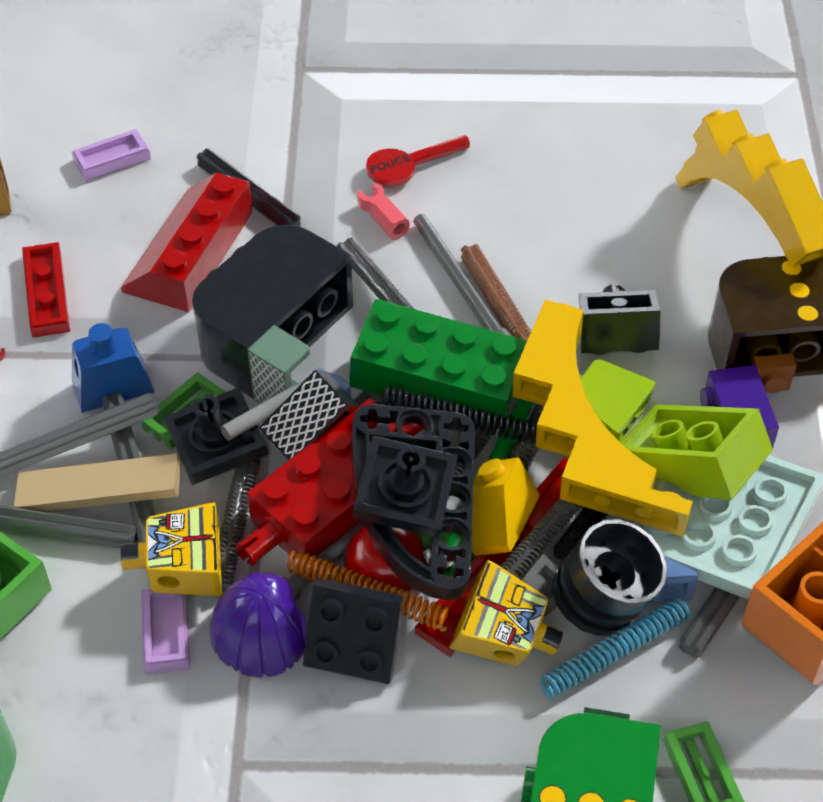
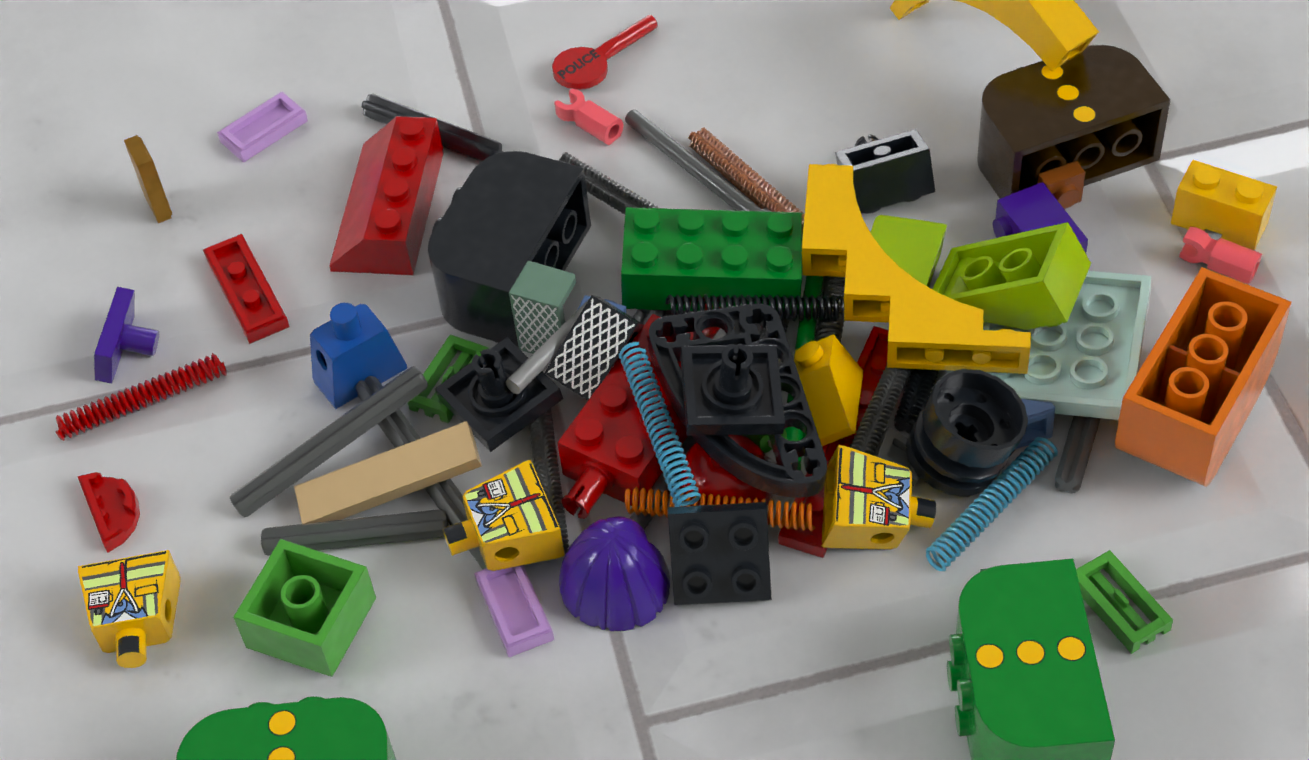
camera: 10 degrees left, 0 degrees up
(328, 508) = (648, 422): none -> medium azure piece

